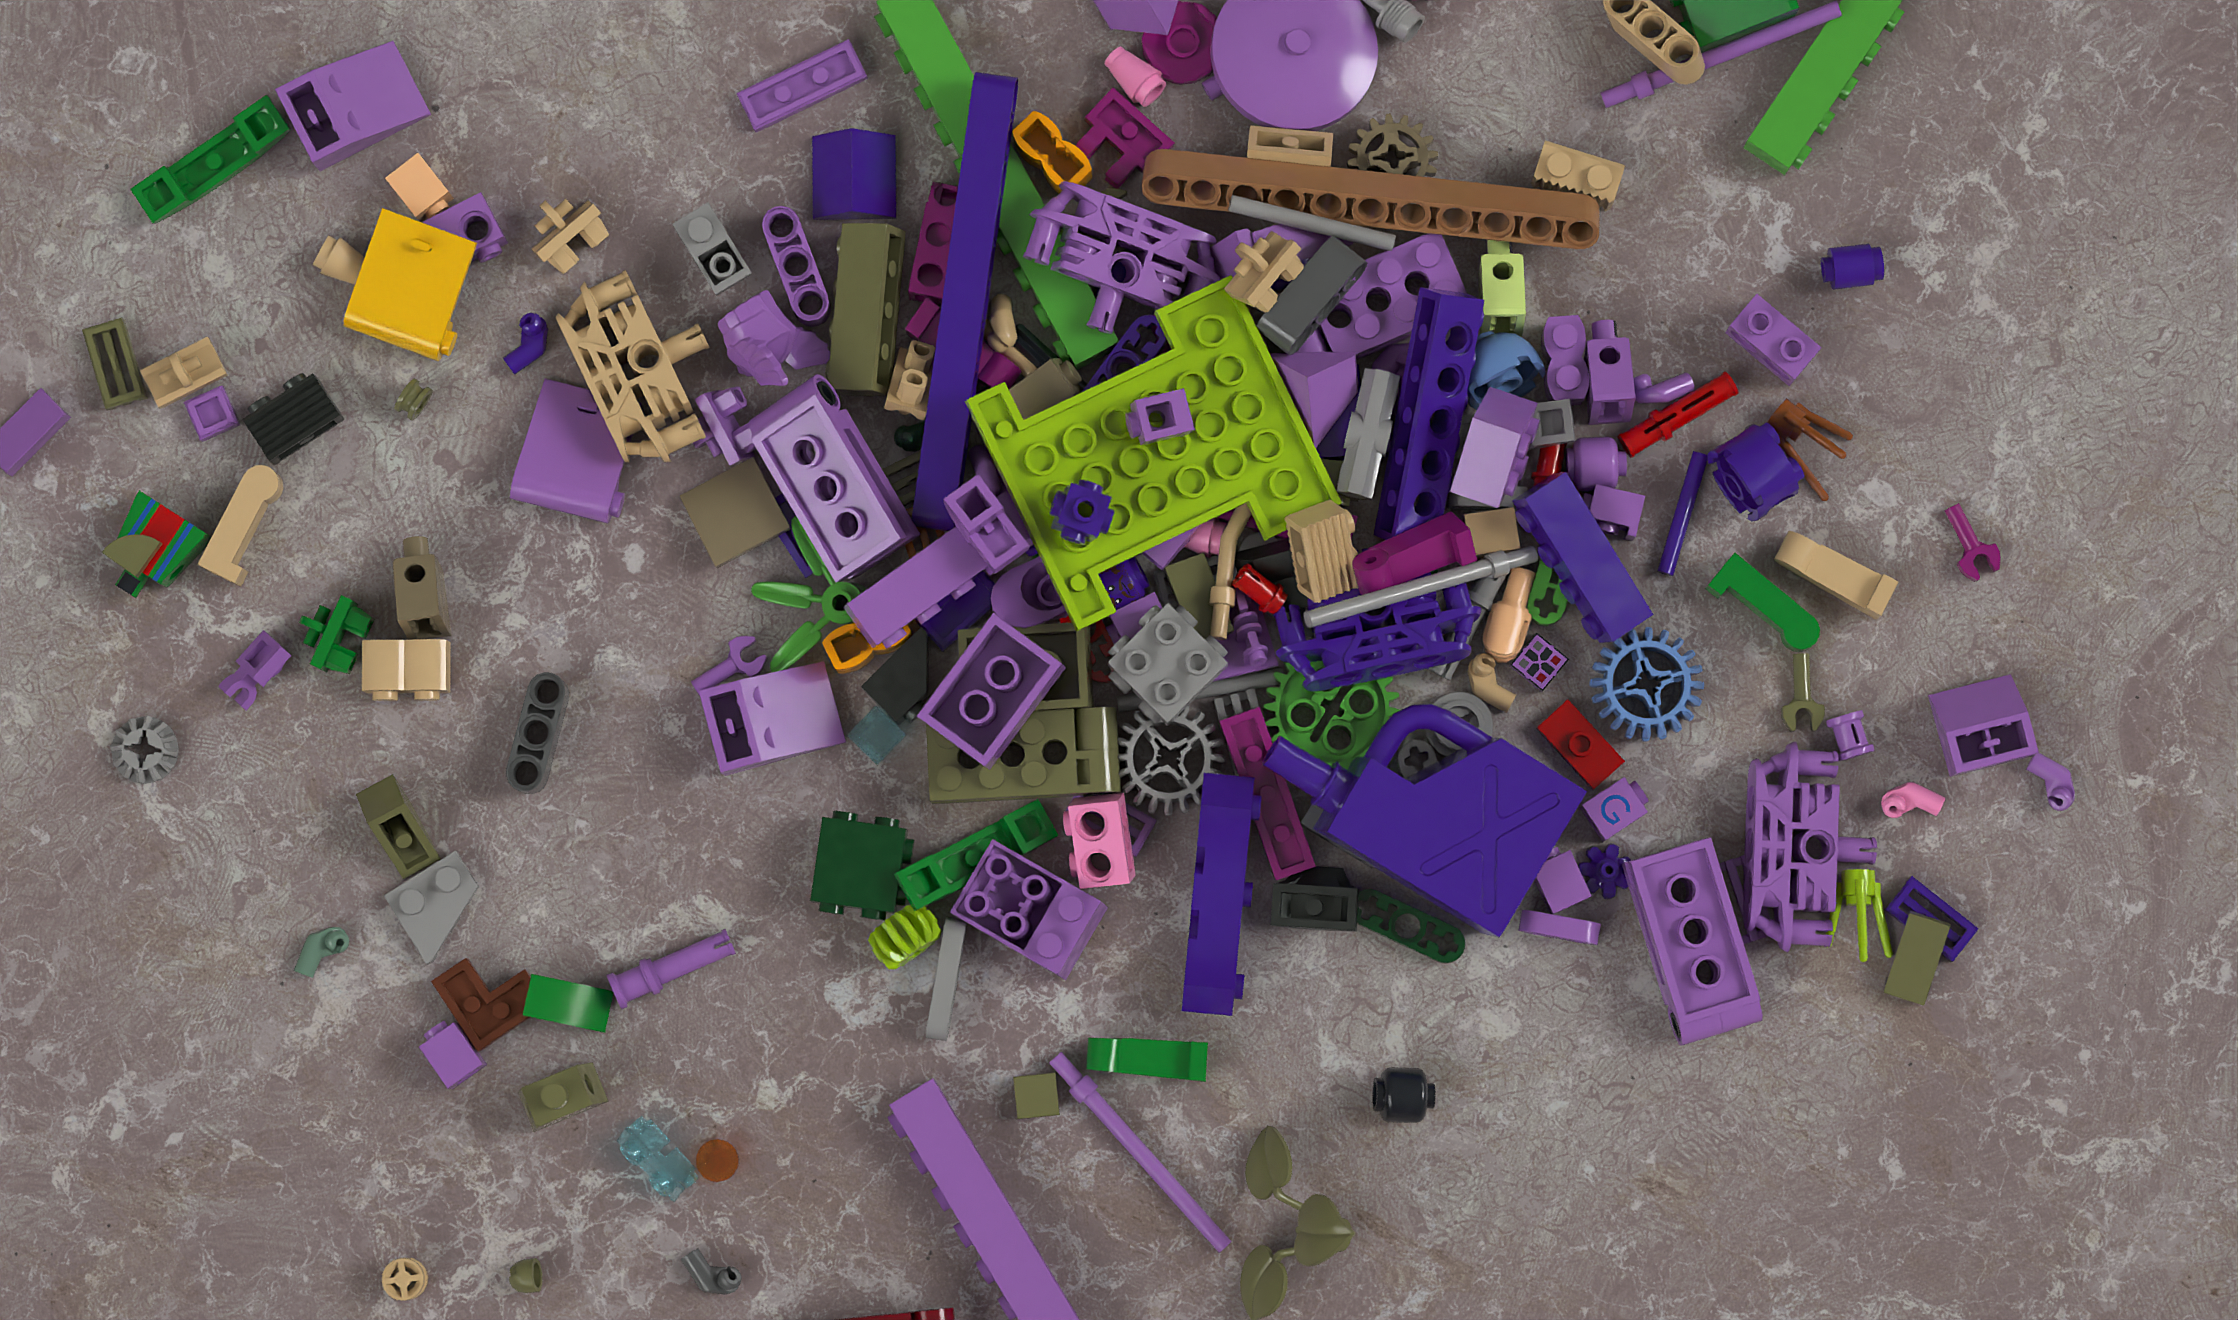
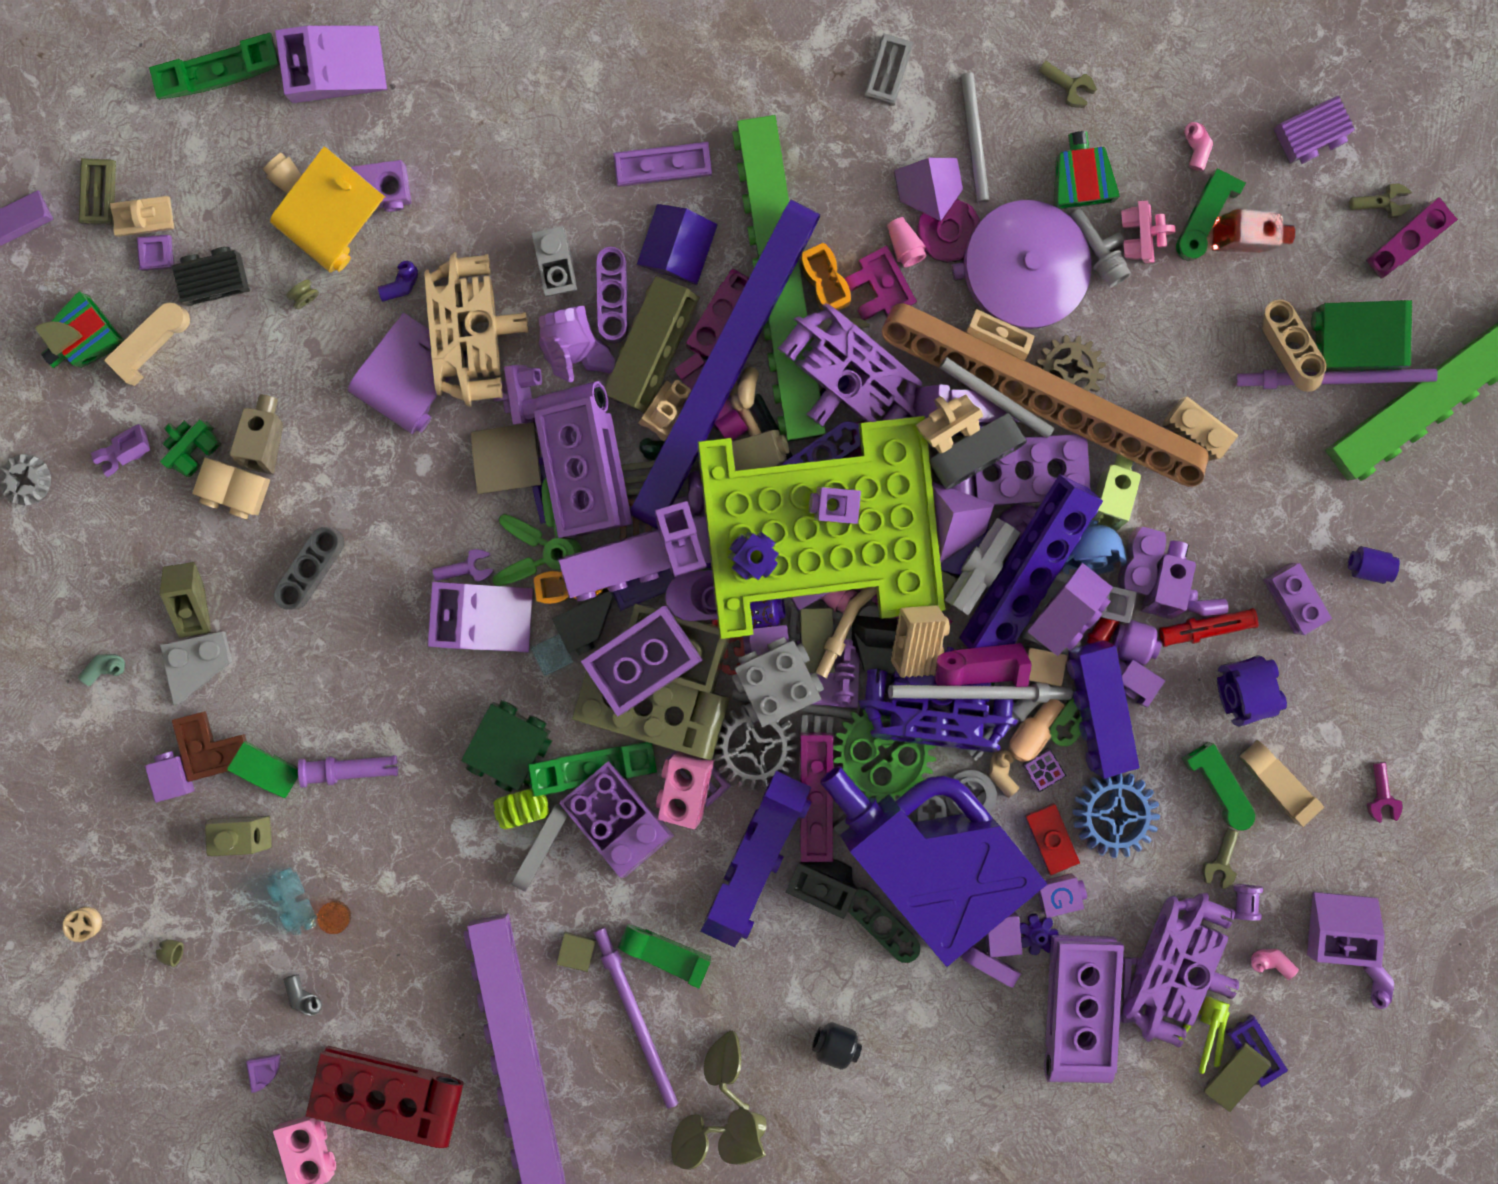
camera: 15 degrees right, 5 degrees up
(420, 188) = (359, 141): light nougat brick -> none
(582, 221) = (442, 218): tan hips -> none
(1260, 589) = (863, 650): red pin -> none
(1682, 513) = (1185, 699): dark purple bar -> none
(1793, 421) = (1290, 662): dark orange plant -> none

